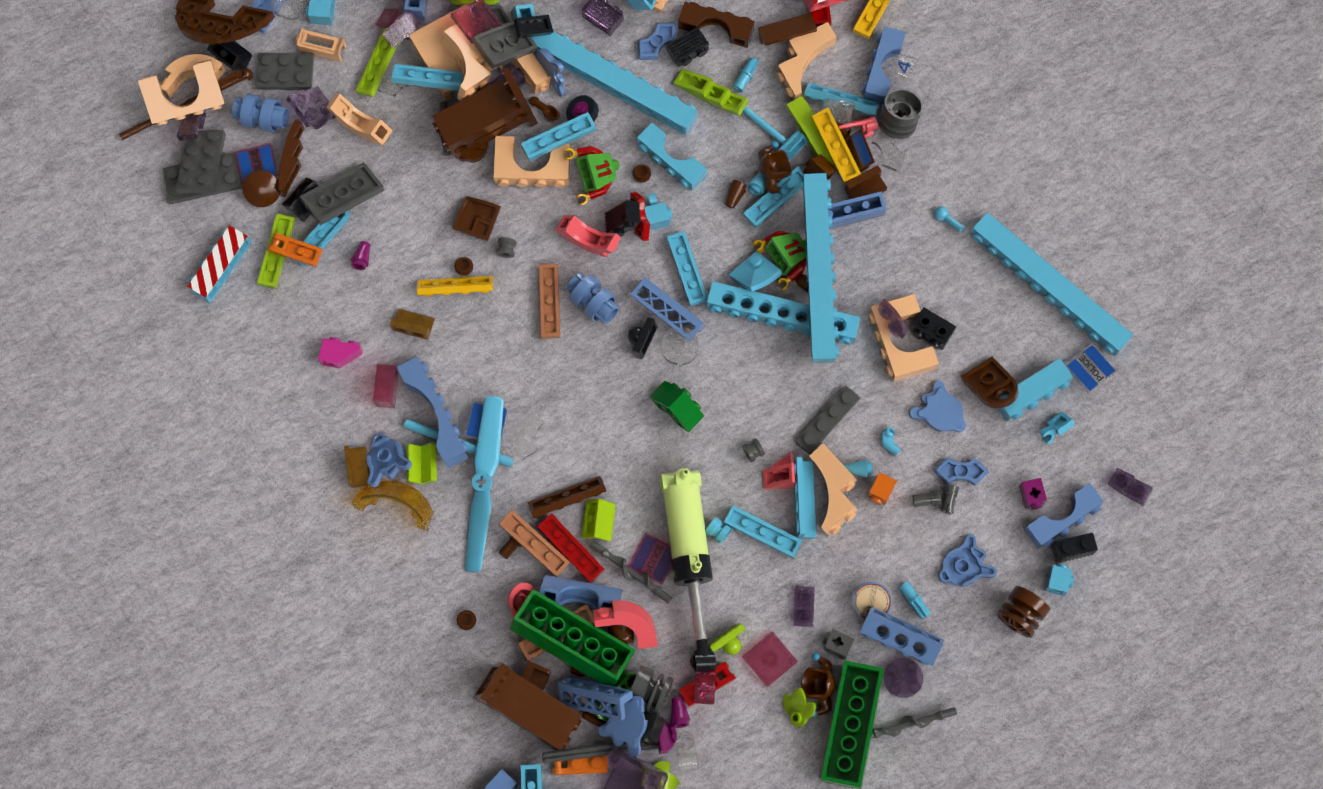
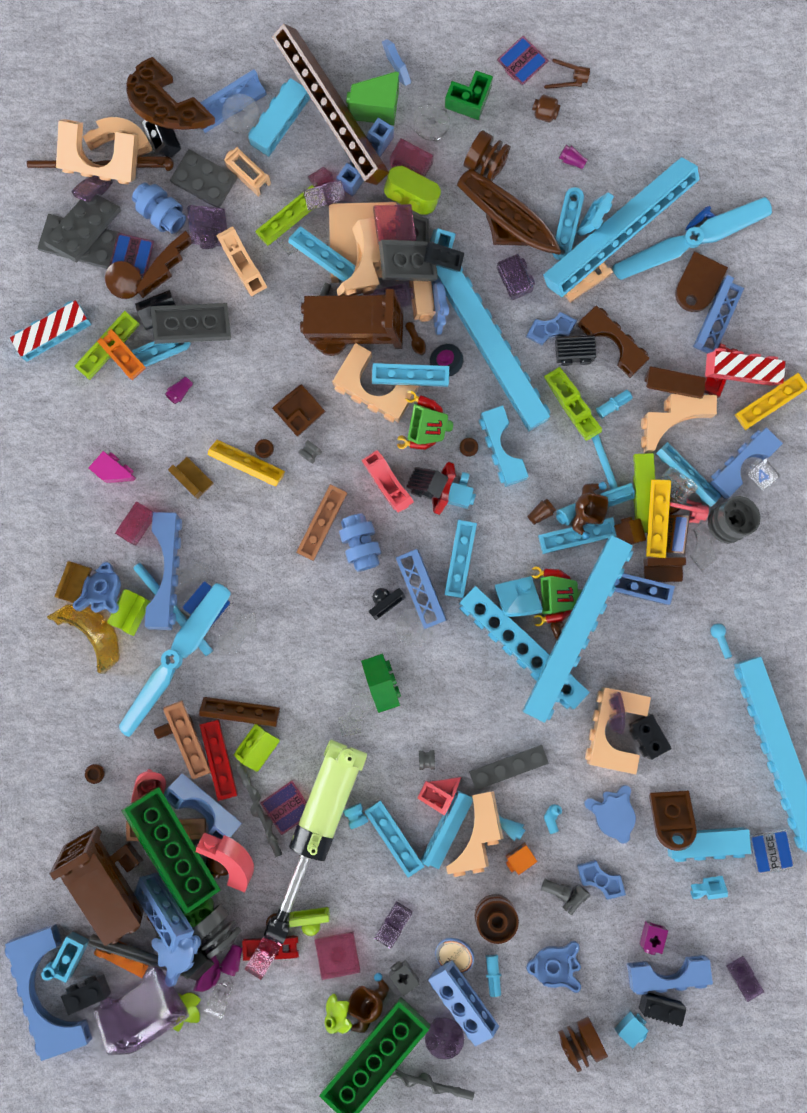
camera: 25 degrees right, 10 degrees up
(889, 548) = (496, 919): none -> reddish brown wheel

